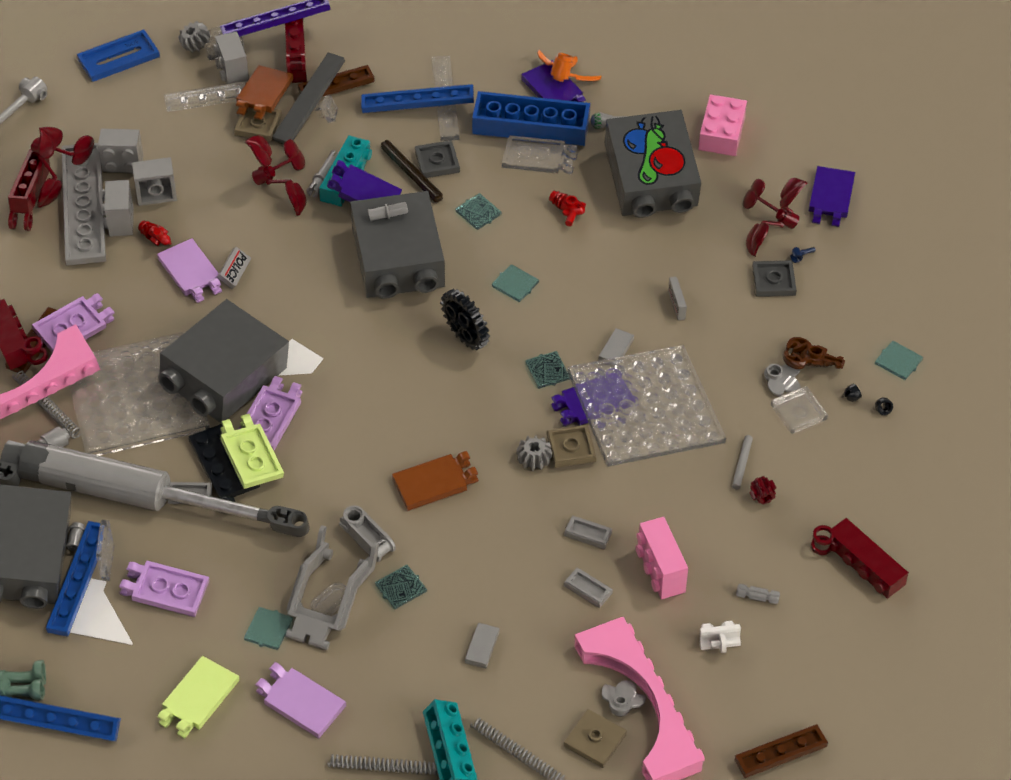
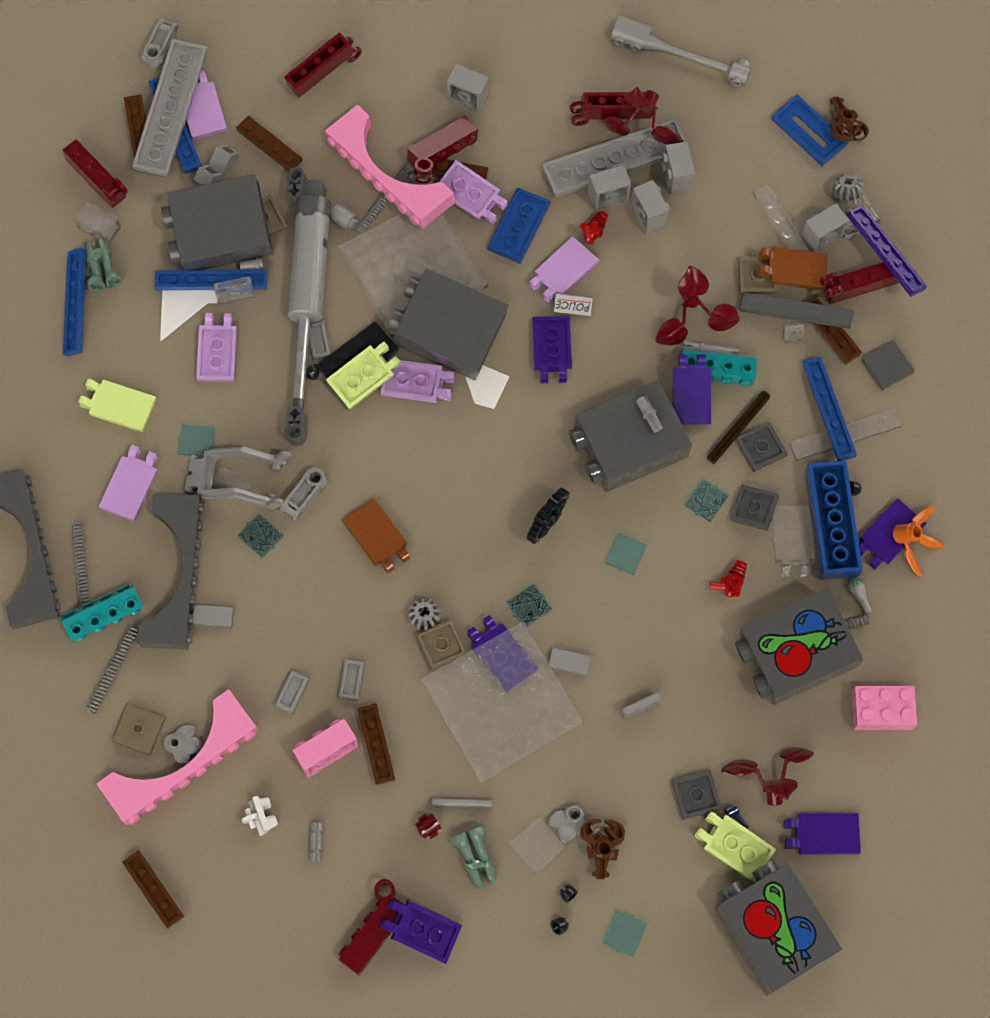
camera: 75 degrees right, 20 degrees up
(126, 26) = (845, 122): none -> reddish brown animal
(126, 296) = (518, 225): none -> blue tile
(275, 294) = (552, 346): none -> dark purple tile
(363, 651) = (172, 624): none -> dark grey arch
(385, 53) = (888, 365): none -> dark grey tile
(499, 174) = (754, 507): none -> dark grey tile
(677, 519) = (376, 744): none -> reddish brown plate
(816, 457) = (474, 866): none -> sand green piece
(830, 259) = (735, 845): none -> yellowish green tile
(870, 512) = (422, 930): none -> dark purple tile
(917, 239) = (776, 926): none -> dark grey brick

